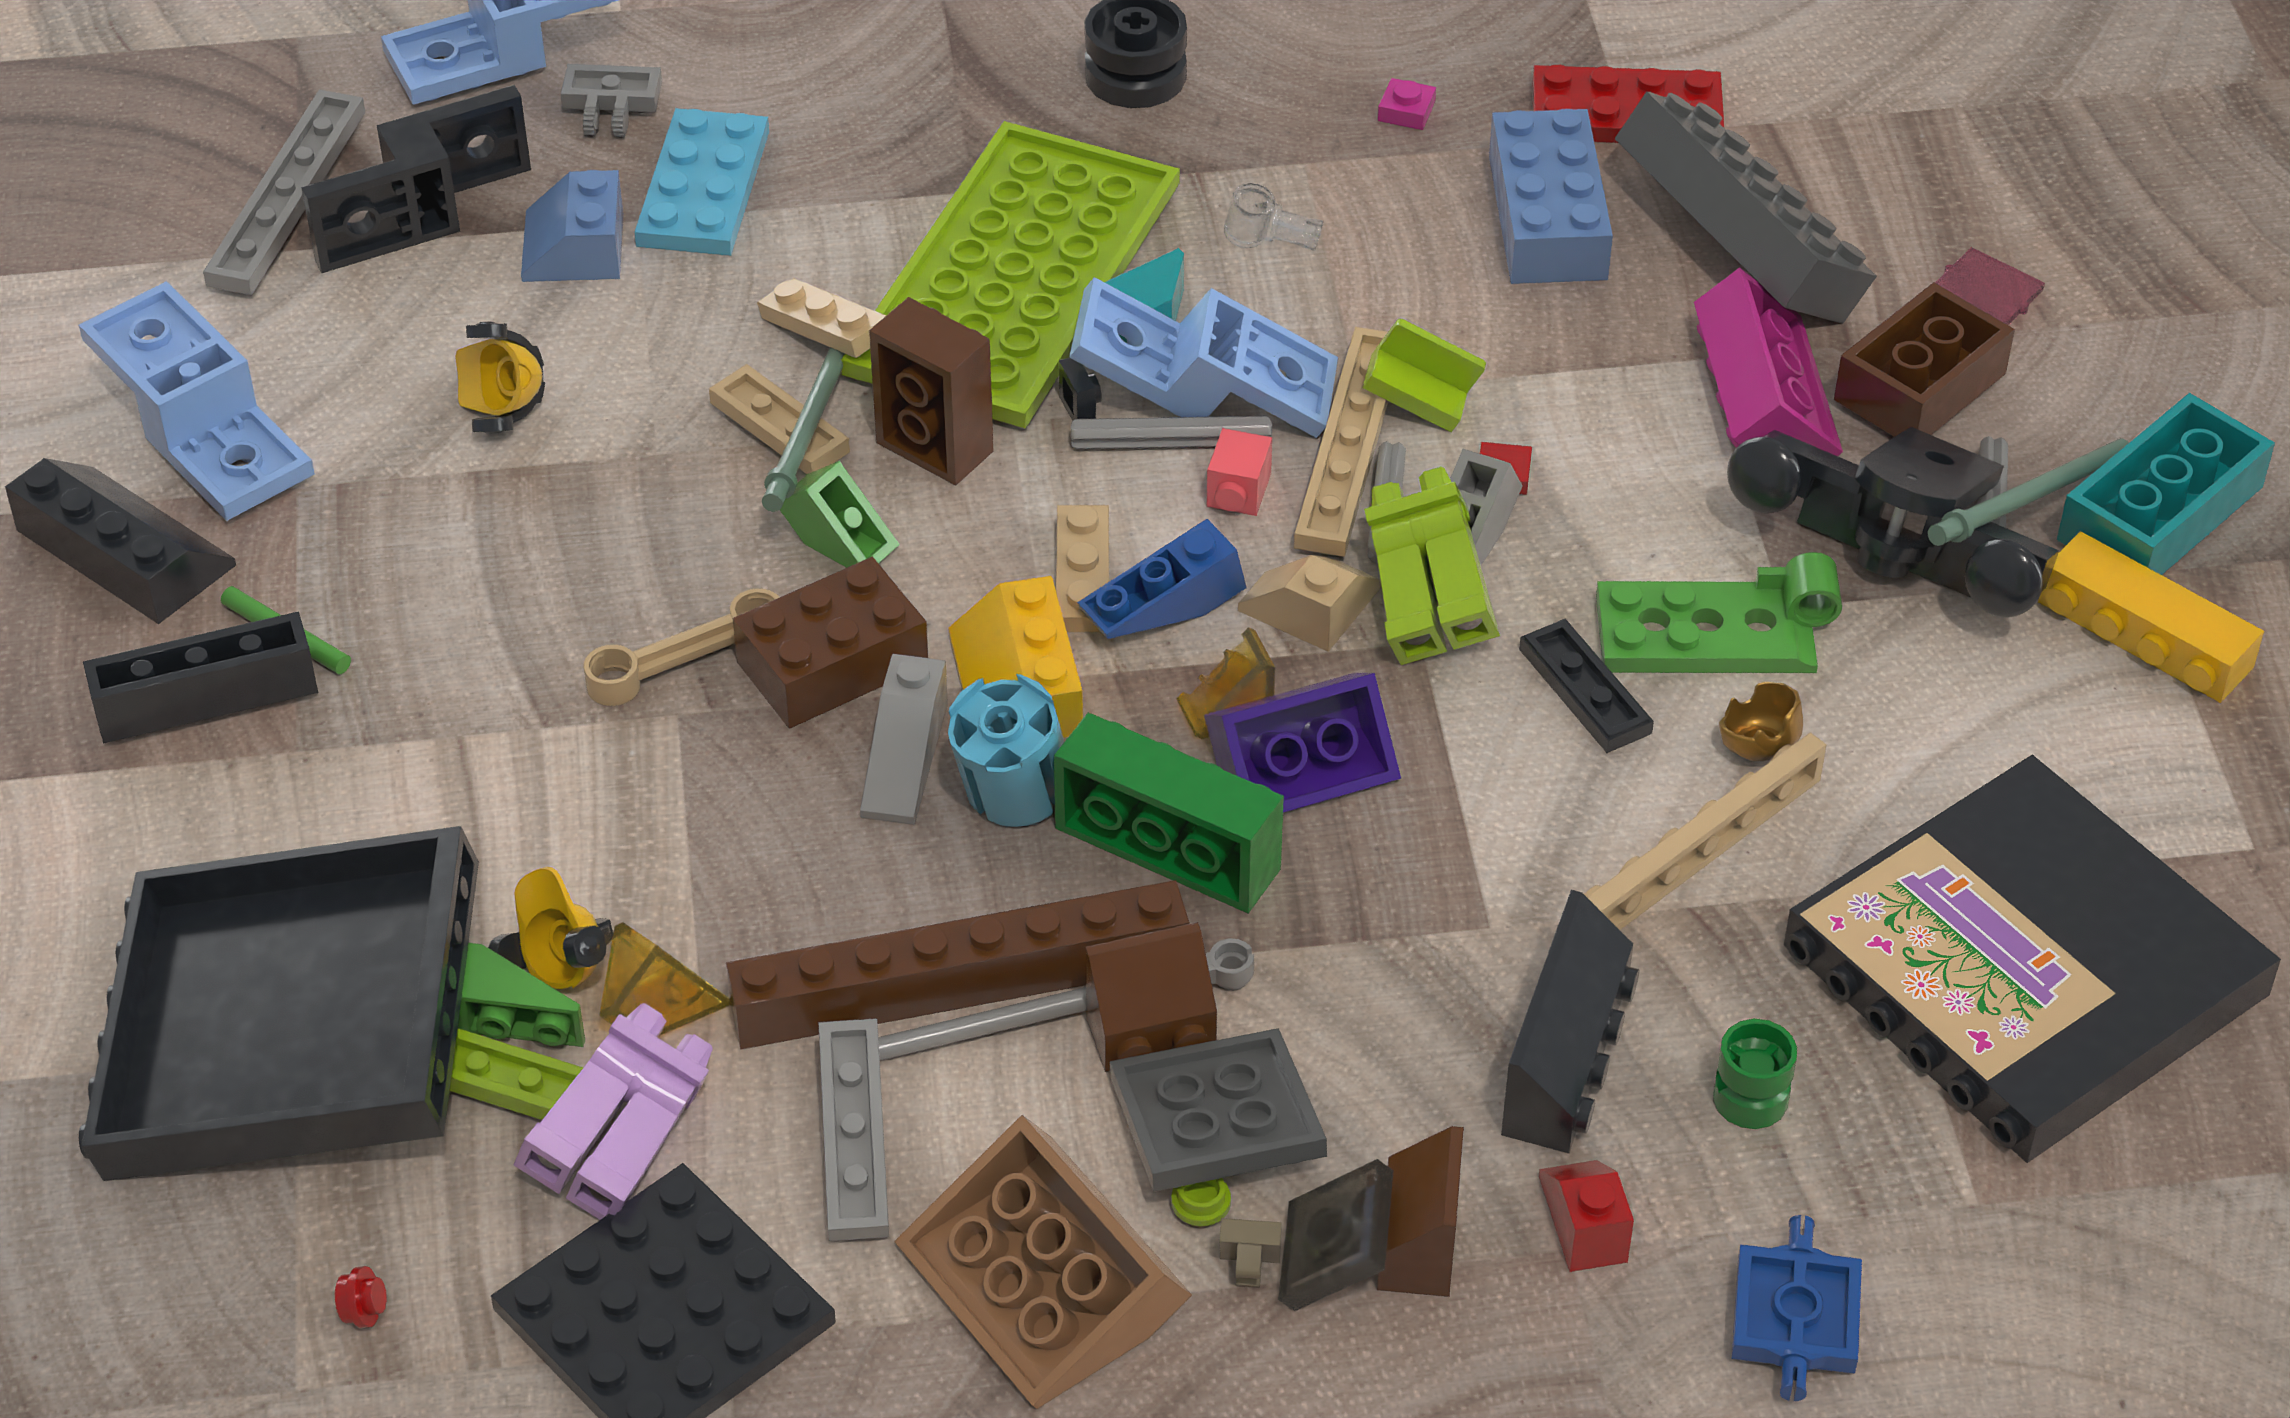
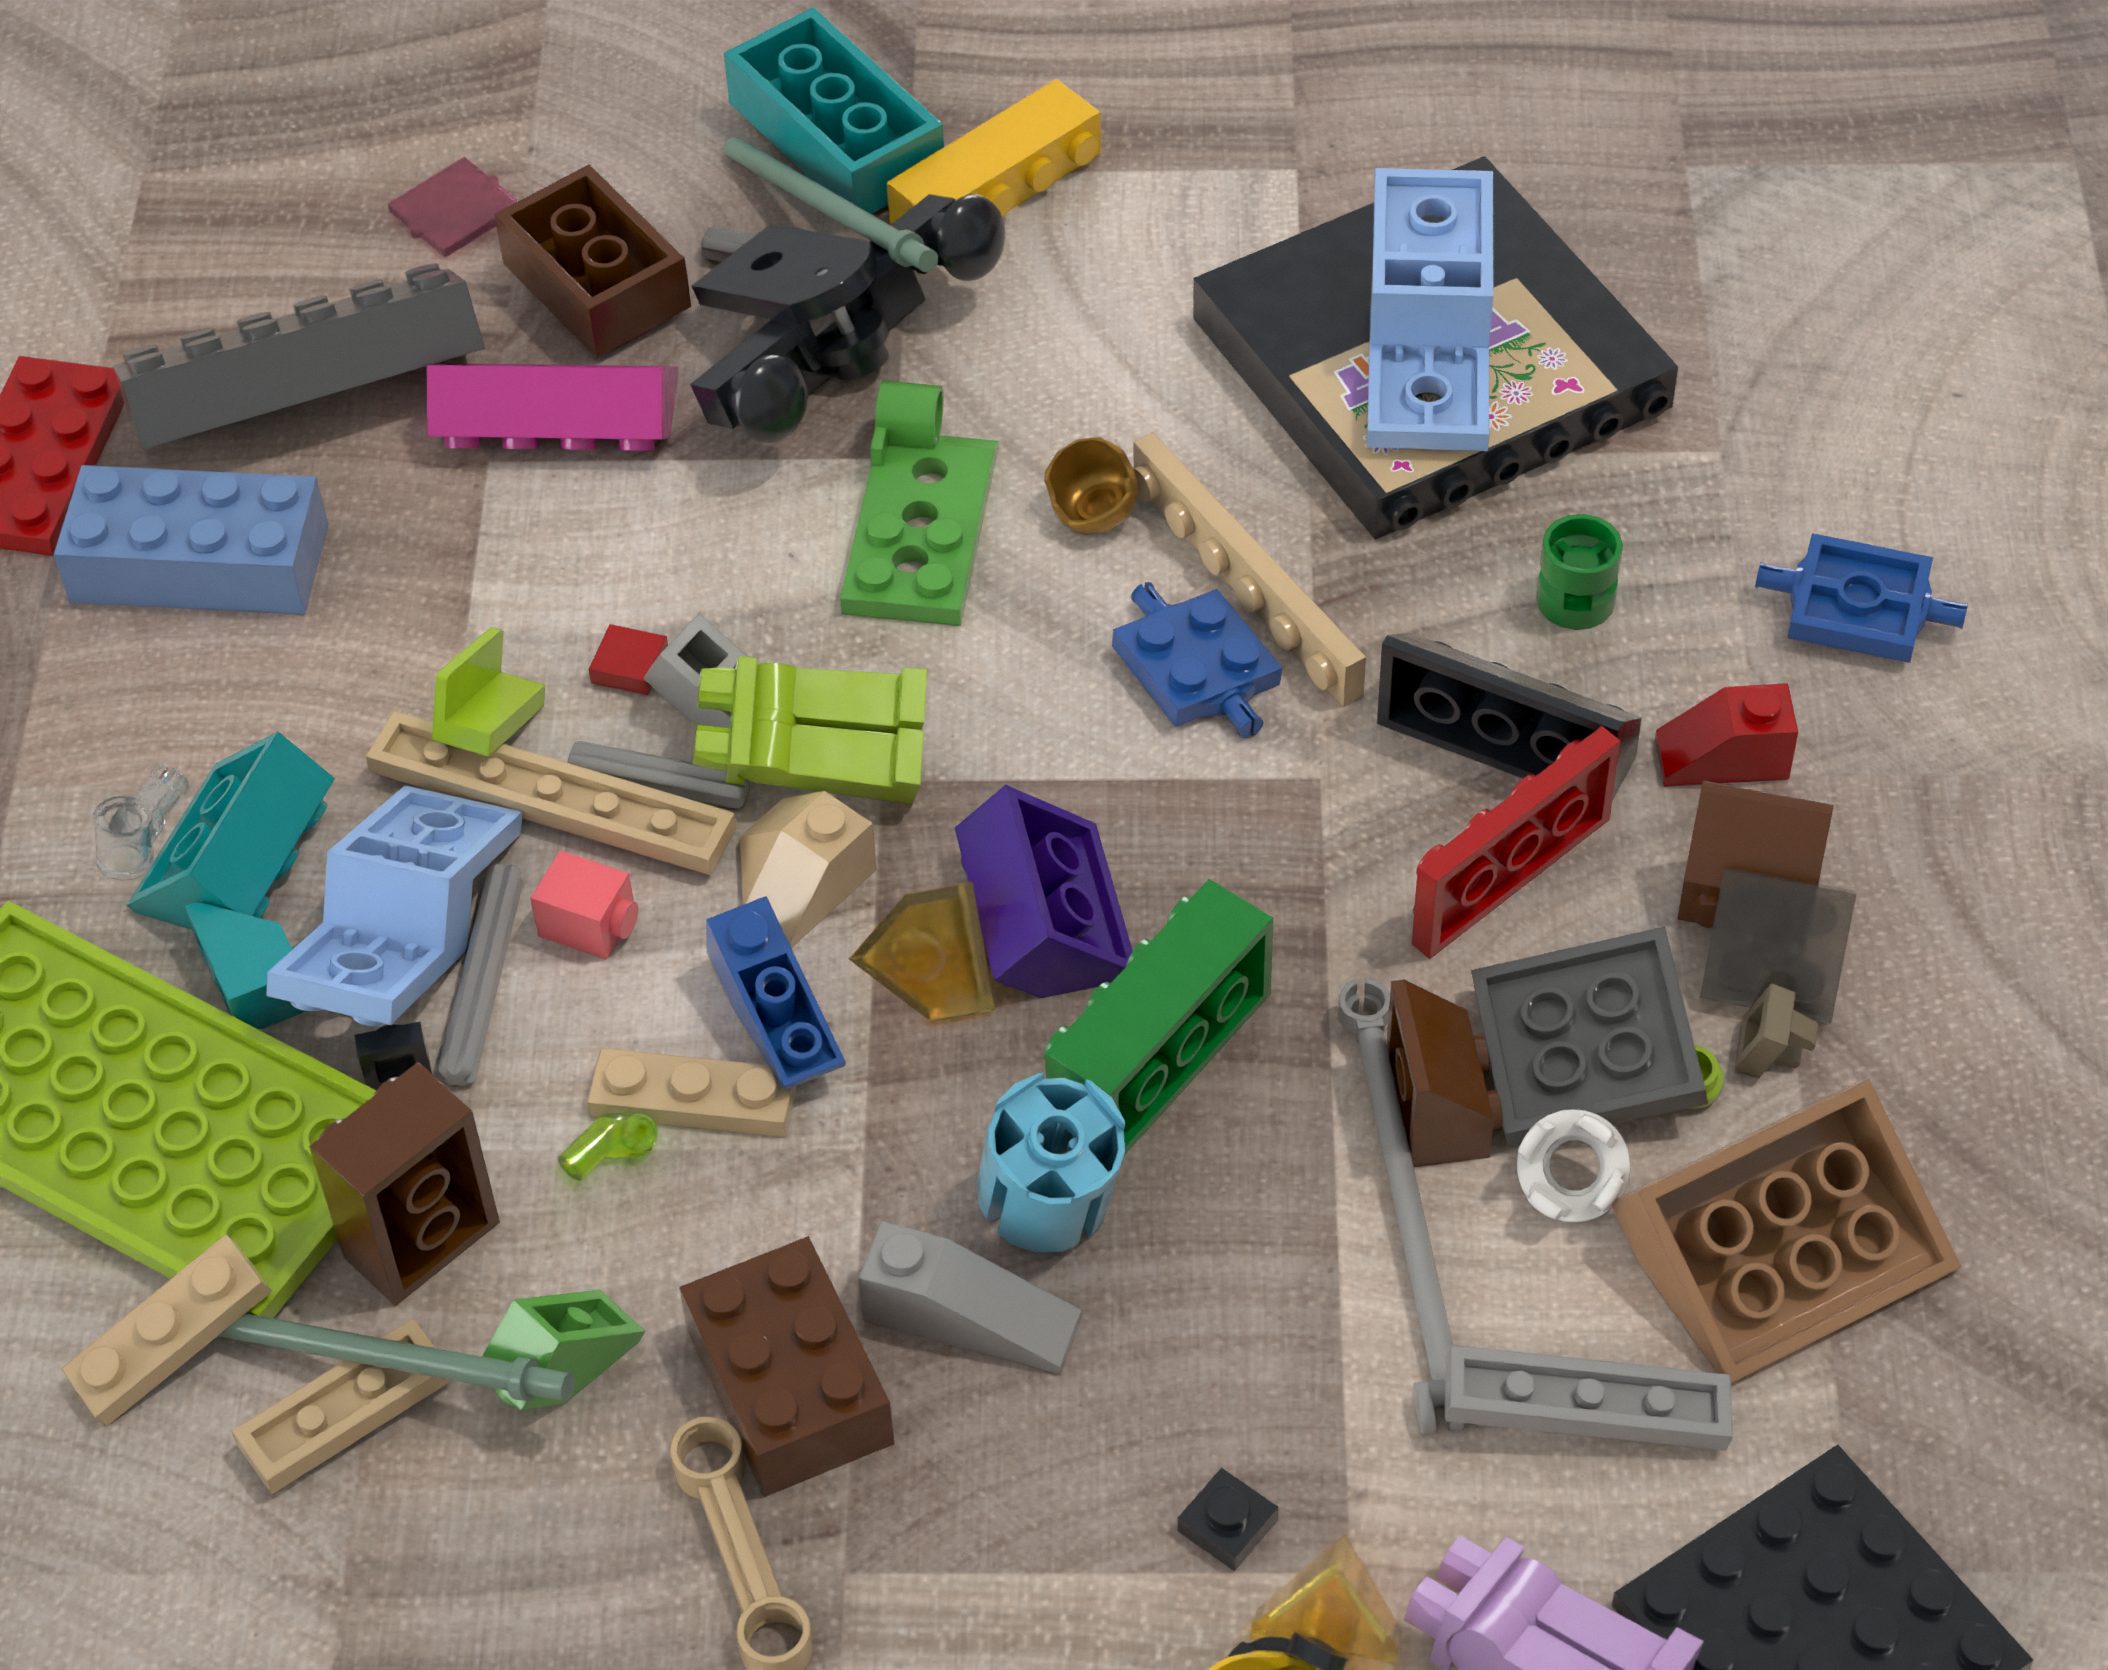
camera: 80 degrees left, 5 degrees up
(735, 923) = (1228, 1519): none -> black plate
(939, 964) = (1348, 1280): reddish brown brick -> none
(1023, 633) = (862, 1158): yellow slope -> none
(1031, 525) = (607, 1138): none -> clear neon green arm
(1093, 1090) = (1538, 1181): none -> white piece
(1262, 274) = (236, 833): none -> teal slope
(1407, 1033) = (1514, 841): none -> red plate
(1586, 685) = (989, 636): black tile -> none
(1594, 822) = (1197, 658): none -> blue plate
(2004, 895) = (1430, 309): none -> light blue bracket

